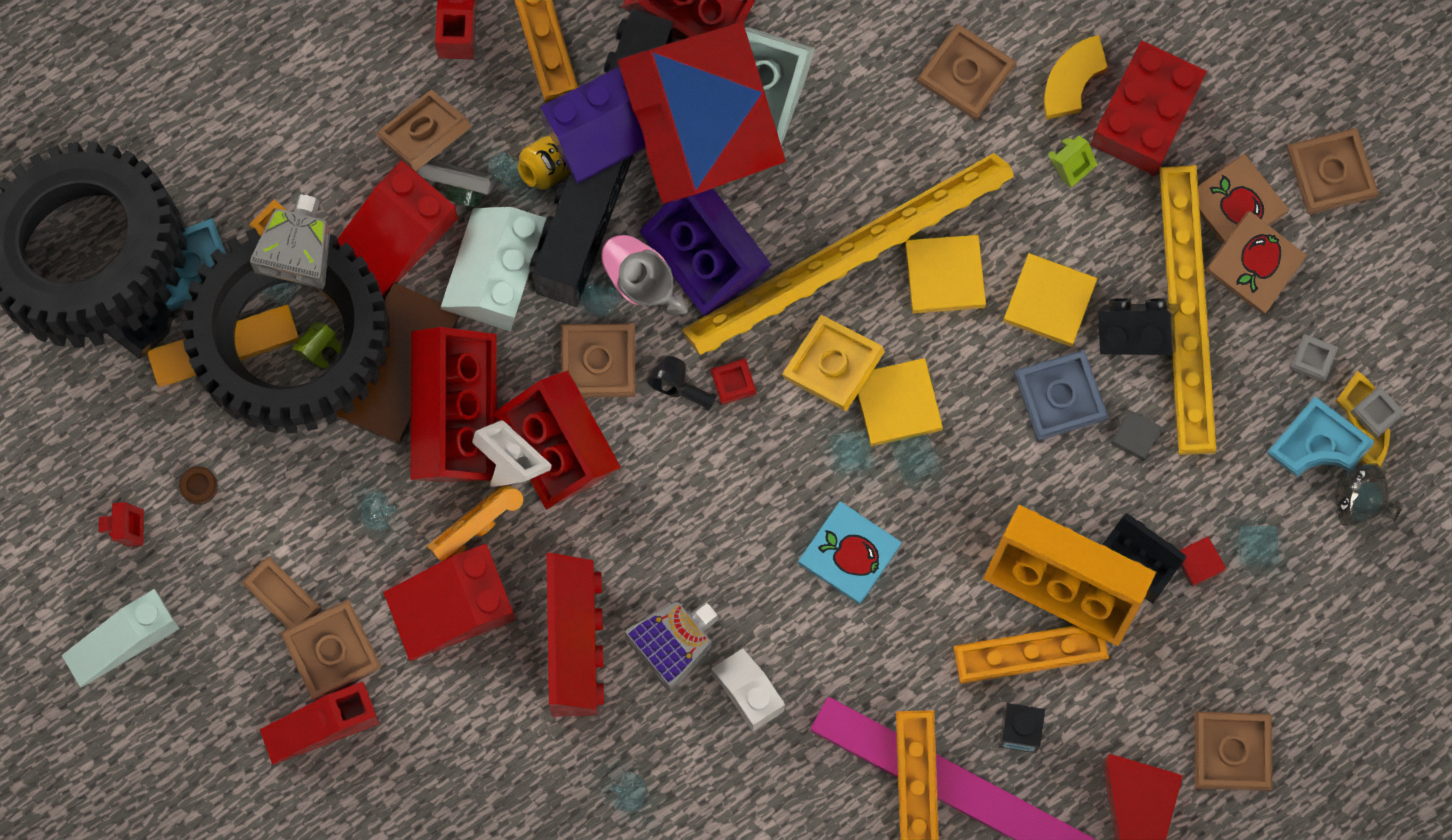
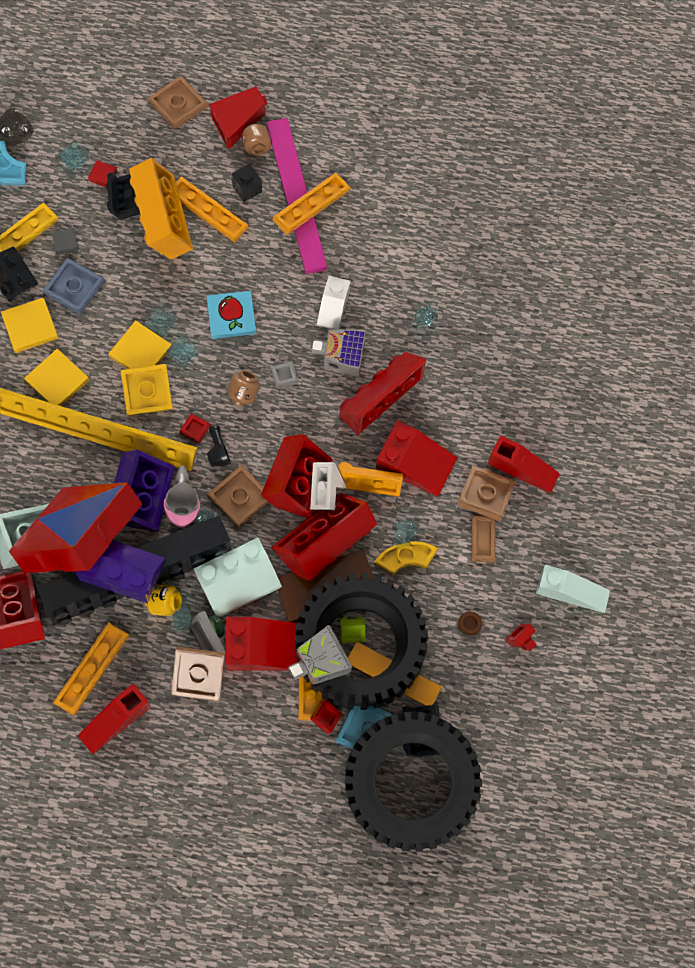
camera: 135 degrees left, 5 degrees down
(243, 221) = (326, 716): none -> red tile
(347, 487) = (406, 555): none -> yellow tile
(708, 547) = (284, 375): none -> light grey tile
(729, 474) = (243, 388): none -> medium nougat head
(1079, 799) = (256, 140): none -> medium nougat head

